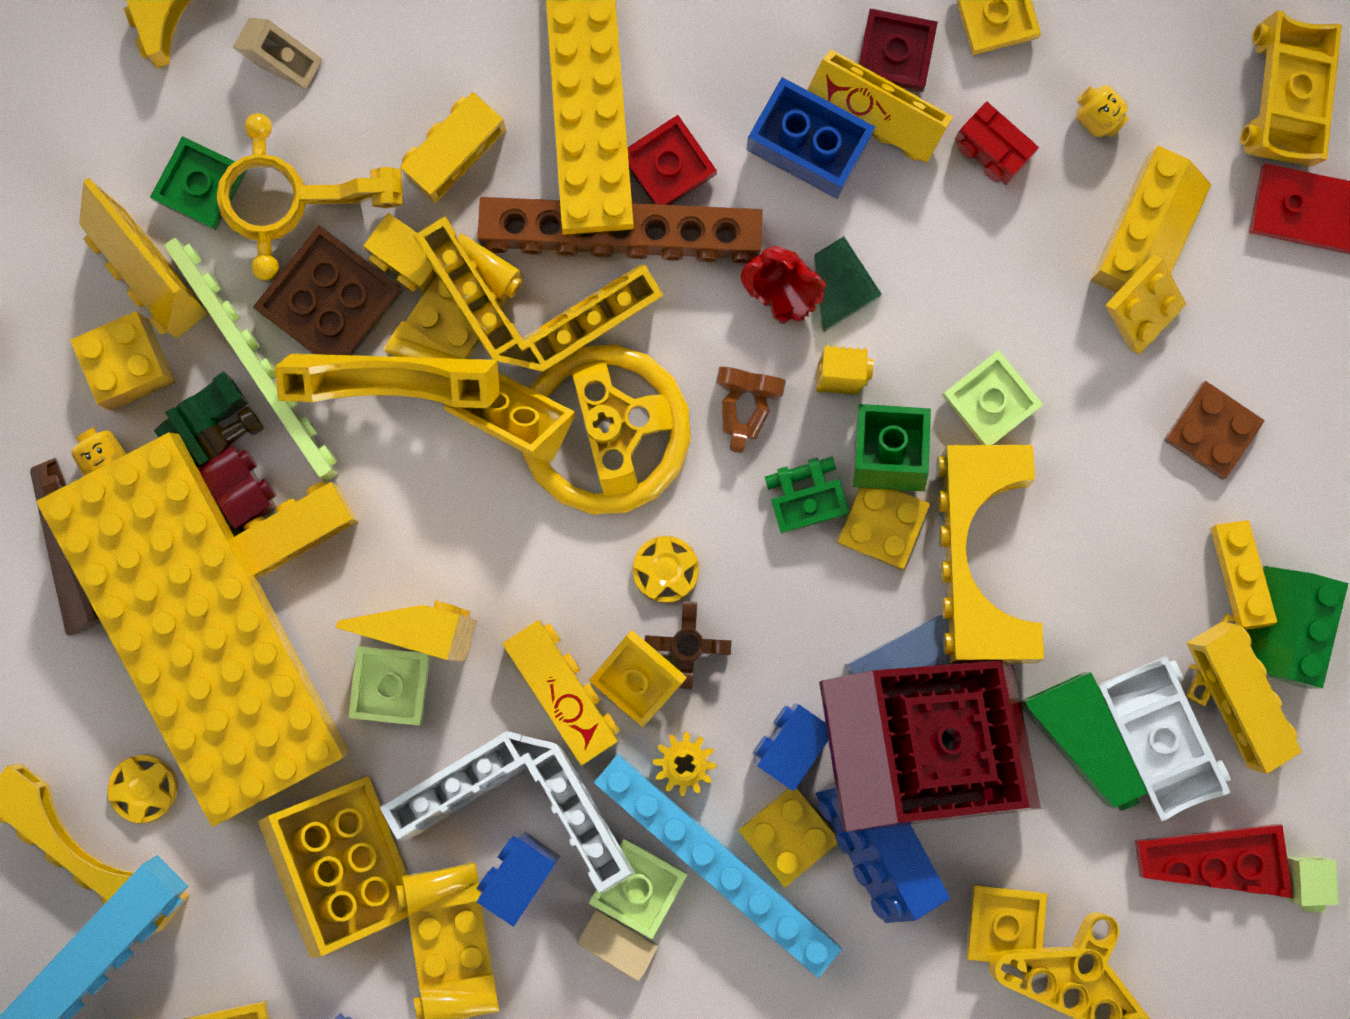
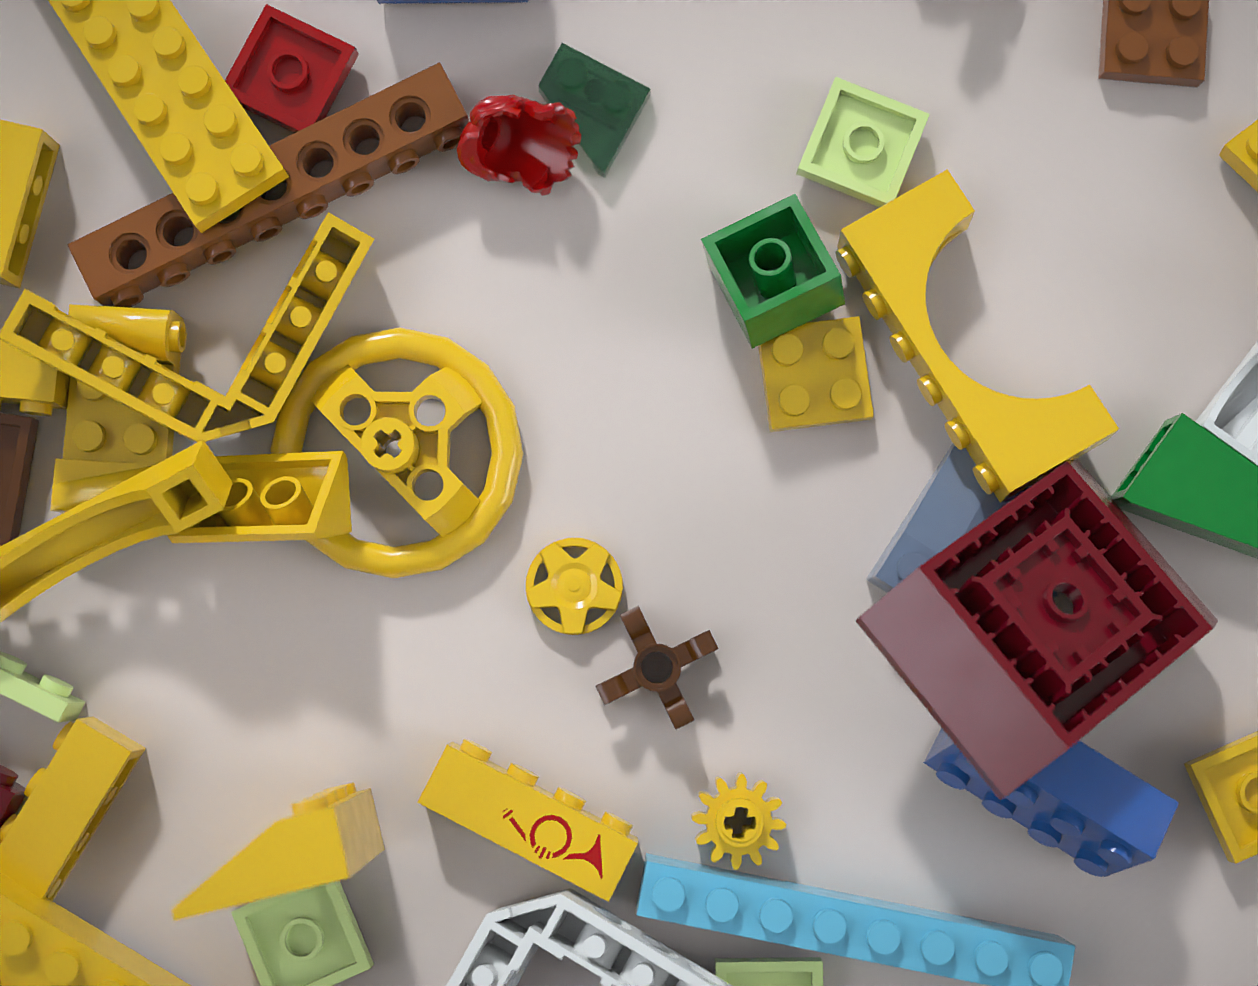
camera: 30 degrees left, 0 degrees up
(637, 678) = (617, 746): yellow plate -> none
(738, 383) = (564, 288): dark orange piece -> none
(788, 836) = (920, 835): yellow plate -> none
(792, 745) = (863, 722): blue brick -> none
(810, 505) = (712, 400): green plate -> none
(843, 370) = (657, 207): yellow brick -> none

